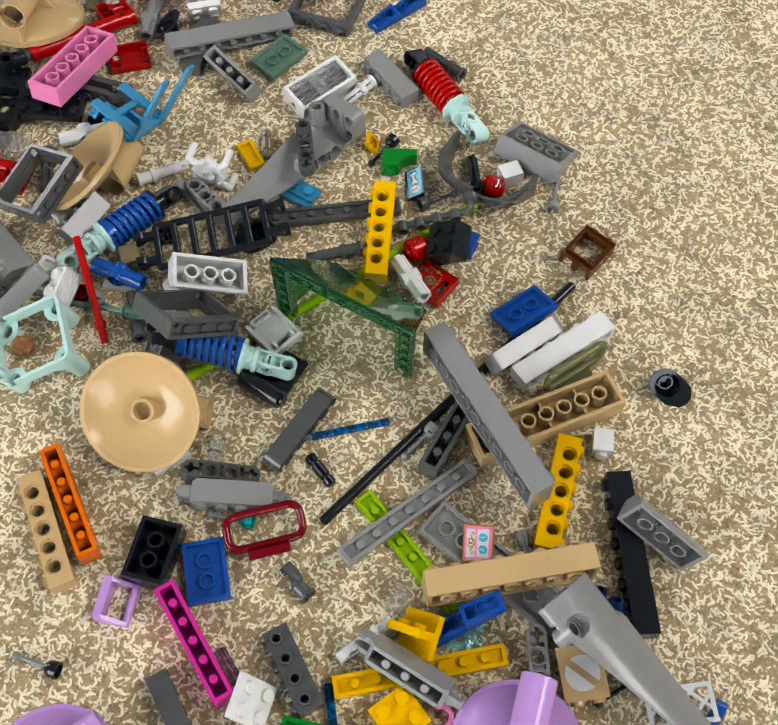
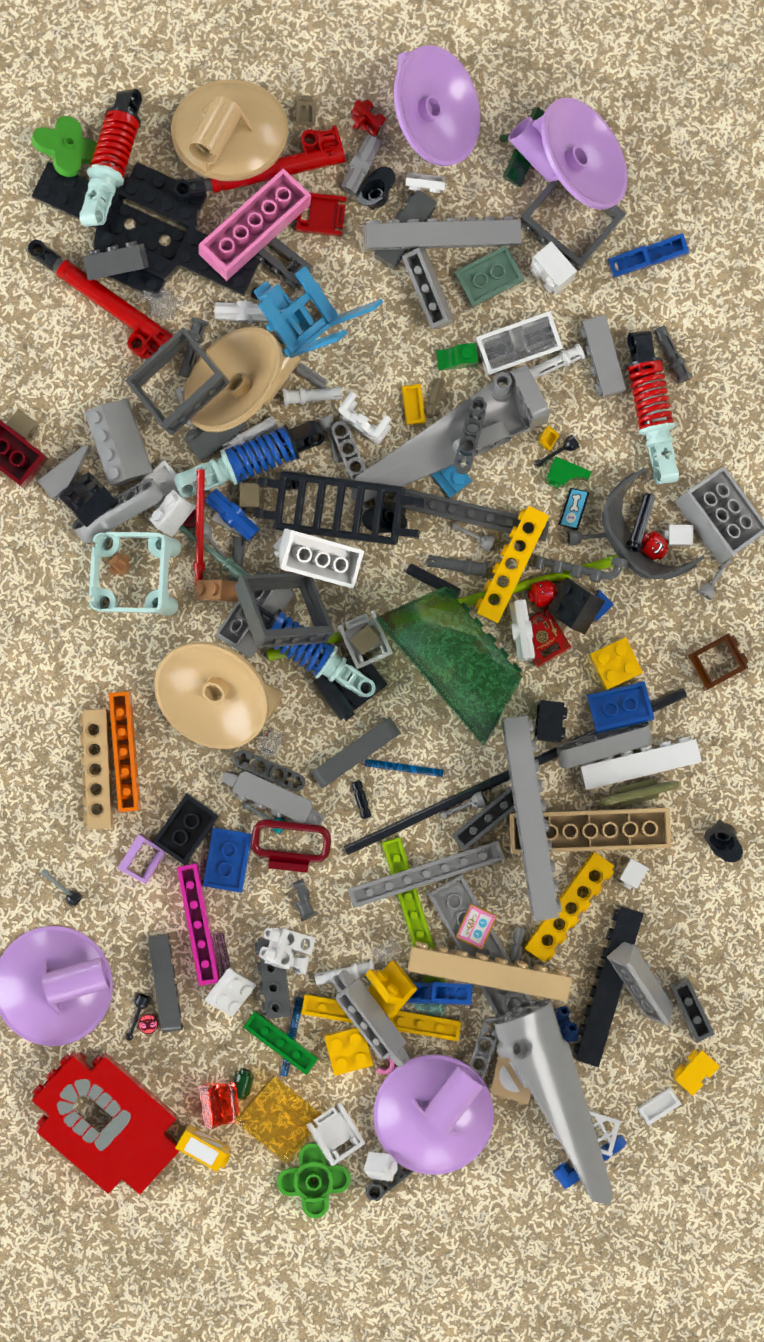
camera: 20 degrees right, 25 degrees up
(121, 333) = (216, 591): none -> medium nougat brick
(153, 160) = (314, 378): none -> light grey piece
(272, 325) = (365, 638): none -> dark tan brick
(276, 111) = (457, 357): none -> green arch
(290, 628) = (281, 946): none -> white hips
(326, 32) = (552, 268): none -> white brick
(352, 228) = (486, 542): none -> light grey hinge
(468, 332) = (550, 721): none -> black brick
(502, 279) = (615, 663): none -> yellow brick
(720, 543) = (691, 1009): none -> dark grey brick
(738, 655) = (659, 1106): none -> white tile
(753, 606) = (695, 1071): none -> yellow brick

